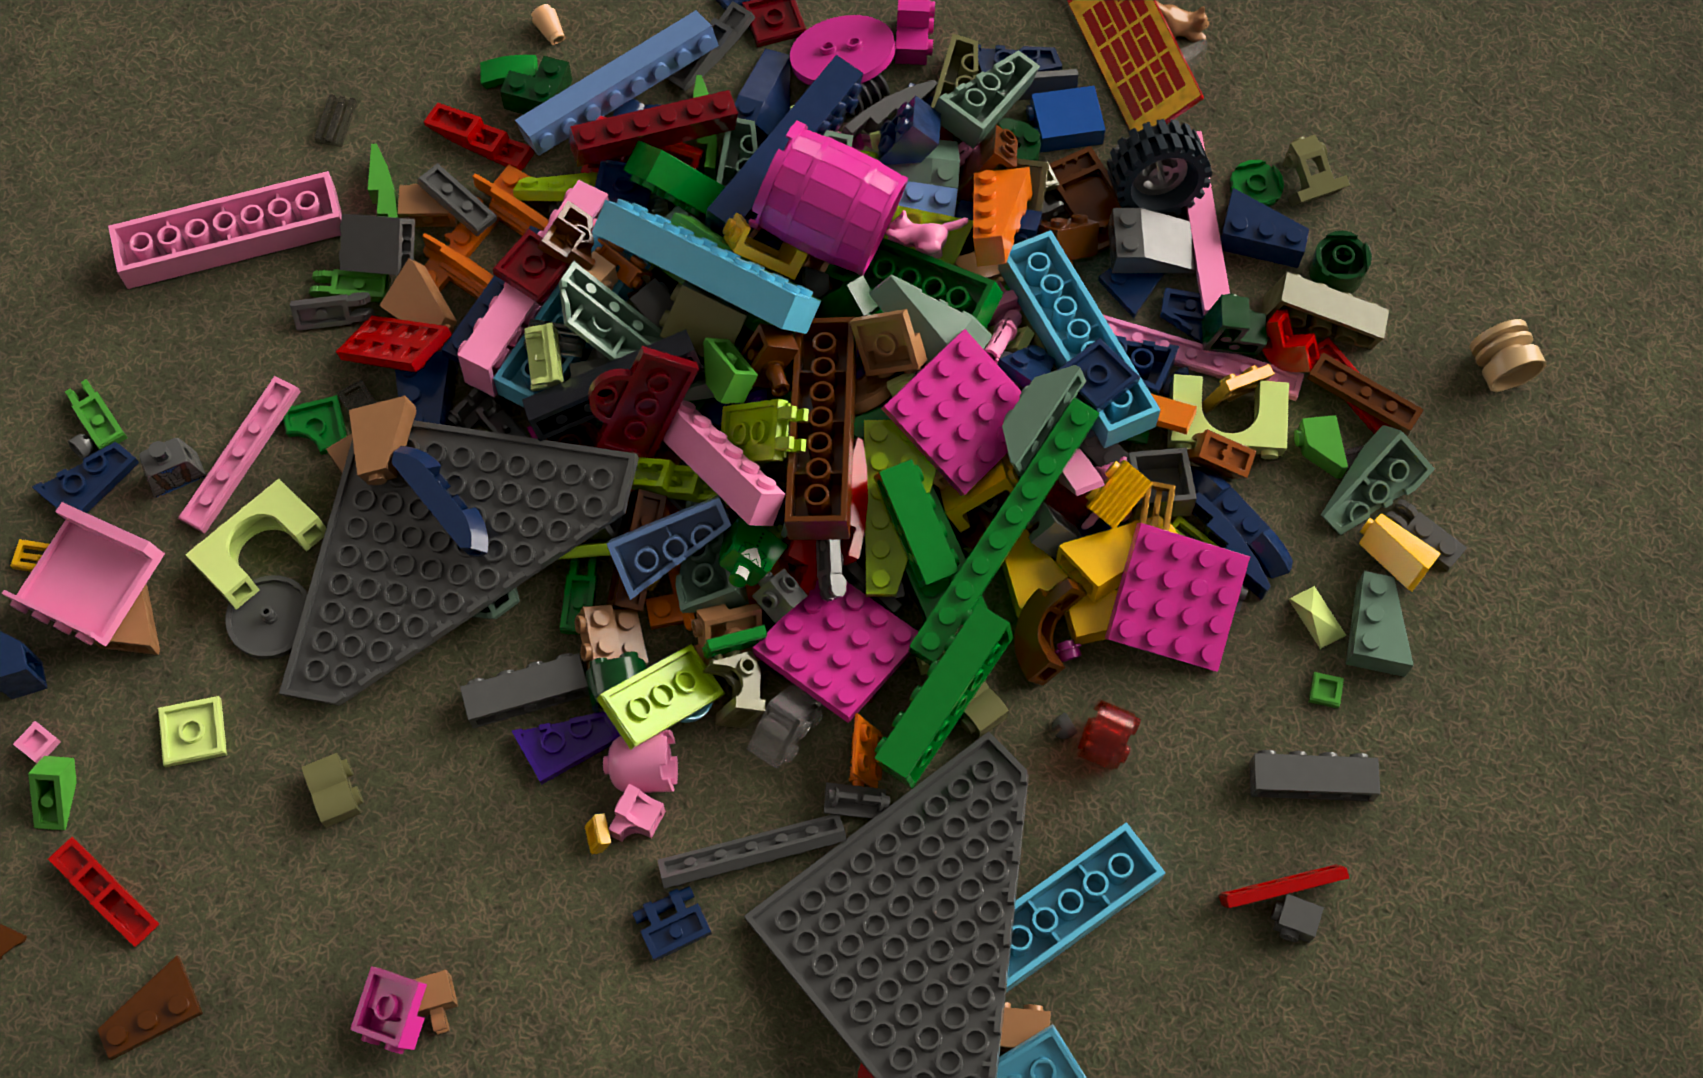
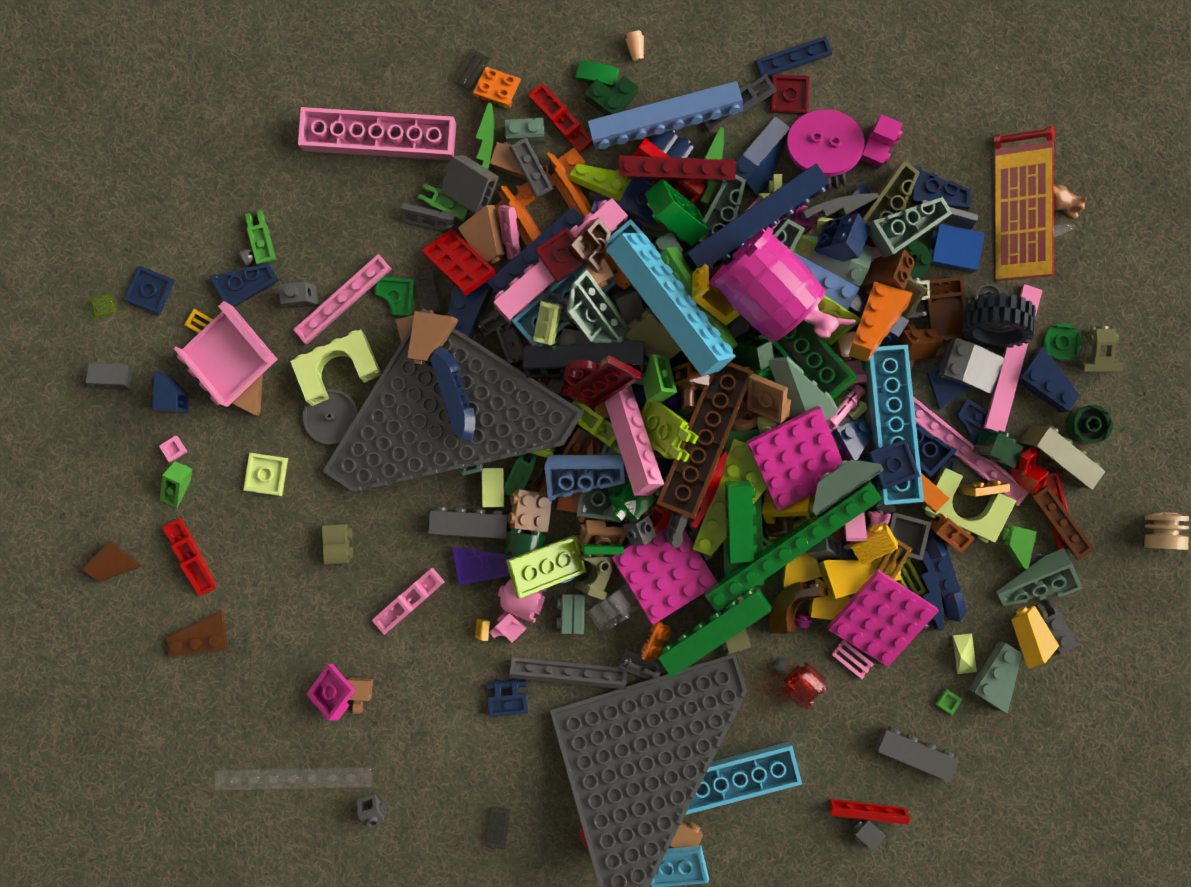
camera: 20 degrees right, 20 degrees up
(377, 126) = (496, 87): none -> orange hinge
(442, 152) = (521, 128): none -> sand green brick
(451, 282) = (509, 230): none -> bright pink hinge
(469, 835) = (408, 601): none -> bright pink slope
(543, 627) = (492, 487): none -> yellowish green hinge
(726, 761) = (572, 613): none -> sand green brick
(1166, 670) = (865, 669): none -> bright pink tile

